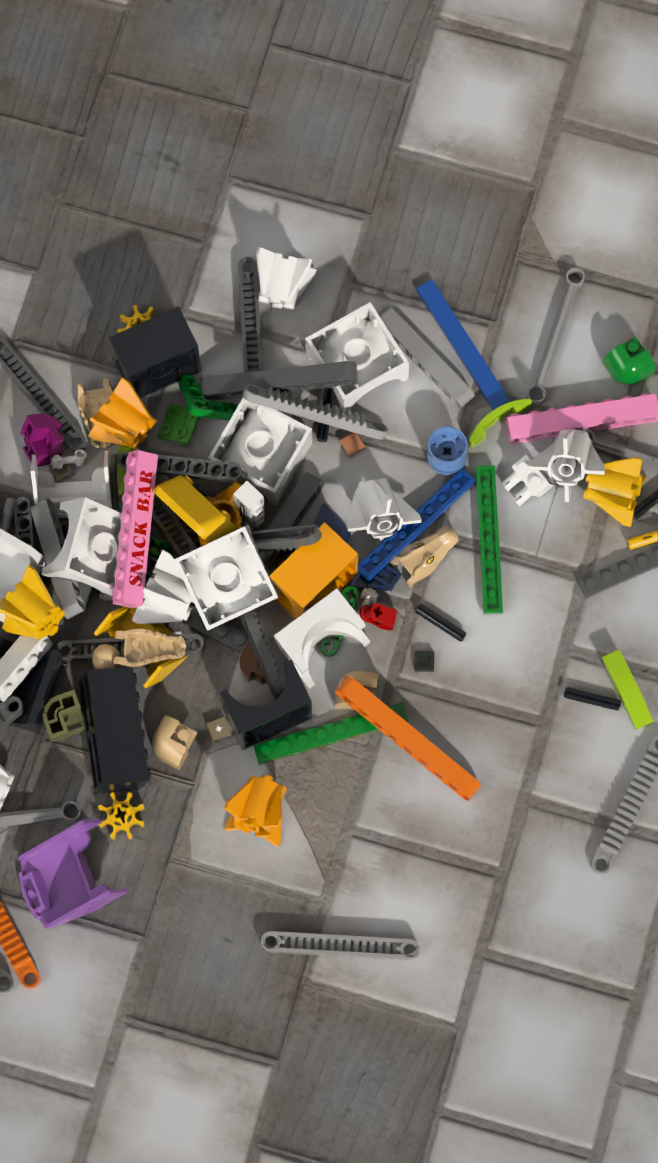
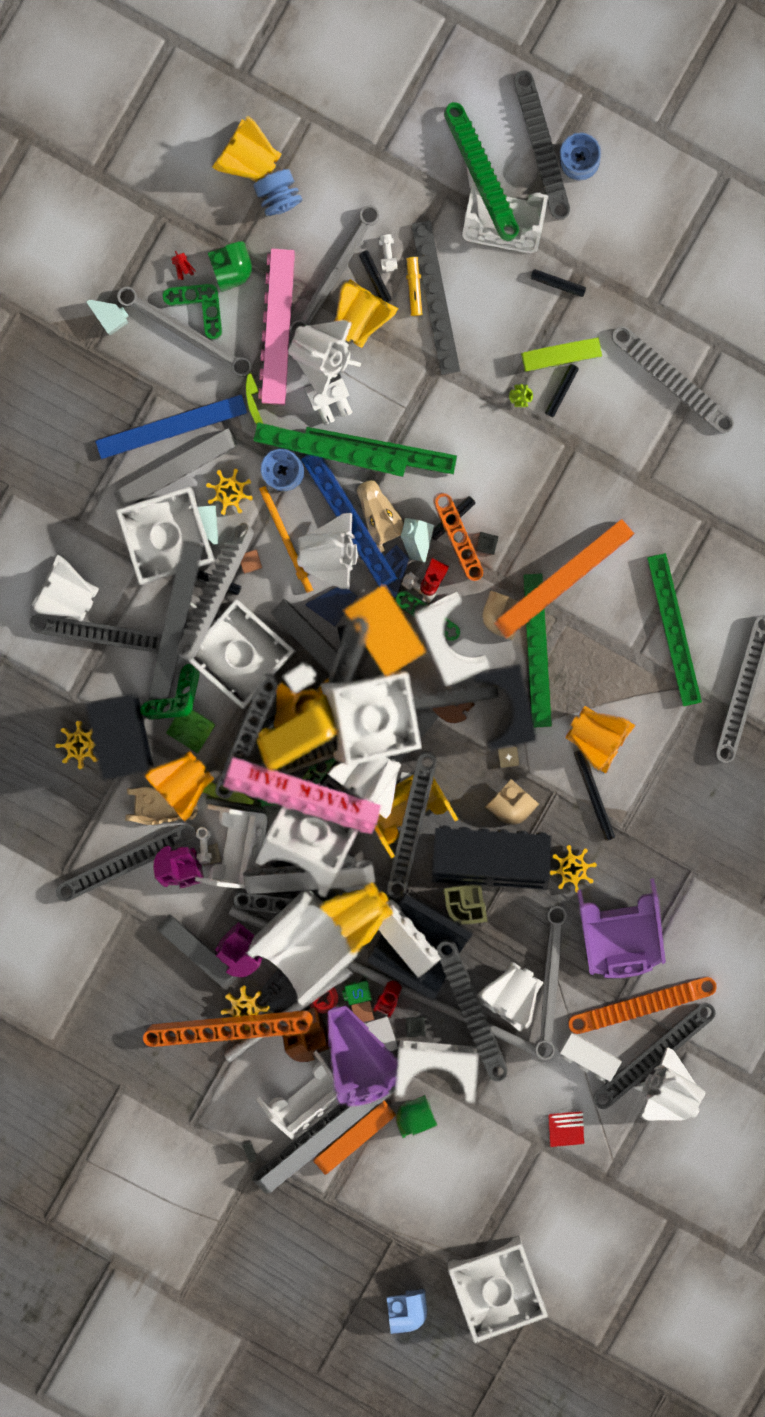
camera: 80 degrees left, 15 degrees up
(104, 656) = (419, 851): tan piece -> none
(146, 647) = (421, 809): tan animal -> none
(193, 825) = (594, 795): none -> black axle
(379, 397) = (209, 520): none -> light aqua slope
(382, 862) = (674, 629): none -> green plate
(384, 470) = (301, 573): none -> light orange bar
(412, 591) = (416, 538): none -> light aqua slope
(418, 637) = (464, 543): none -> orange beam
(422, 409) = (232, 482): none -> yellow gear
(478, 490) = (330, 449): none -> green plate
(552, 265) = (109, 315): none -> light aqua slope
(576, 659) = (521, 395): none -> lime gear
(588, 350) = (206, 303): none -> green beam
(620, 317) = (181, 264): none -> red piece

